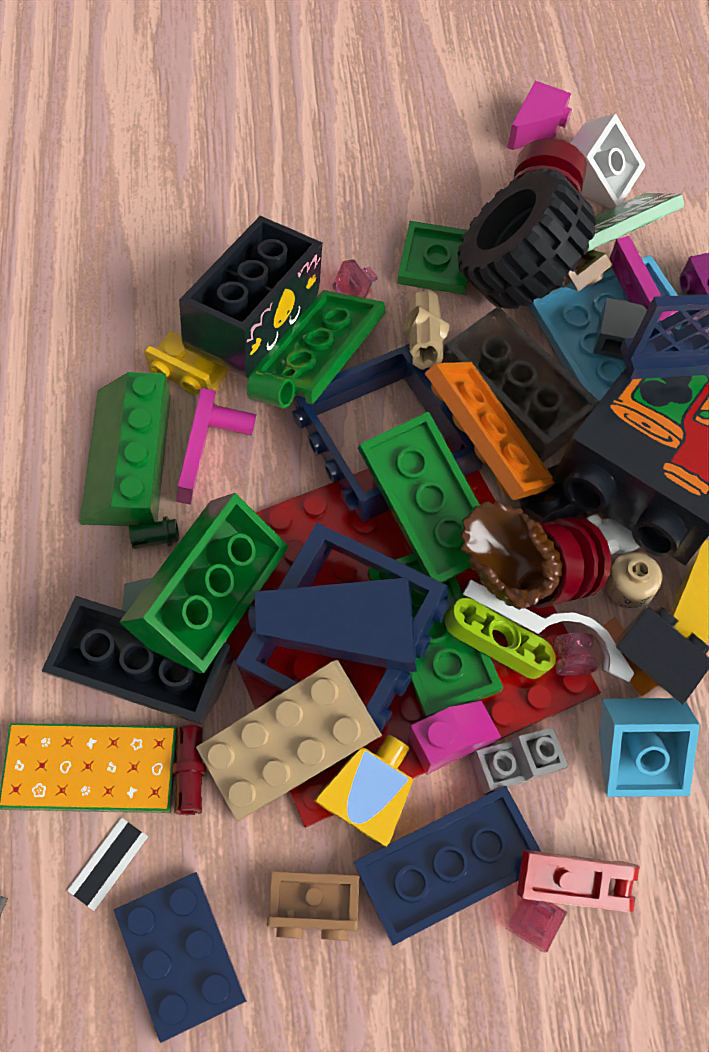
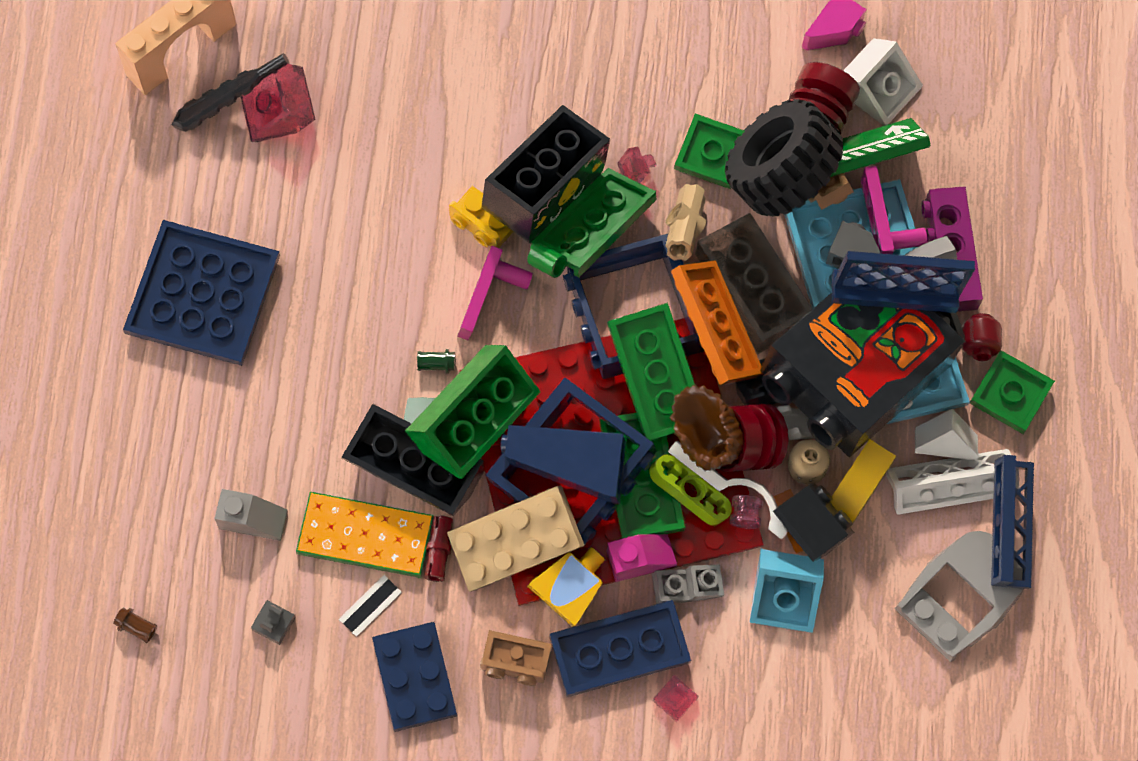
camera: 10 degrees right, 5 degrees up
(127, 451) = (422, 288): green slope -> none
(577, 881) = (709, 674): plate -> none

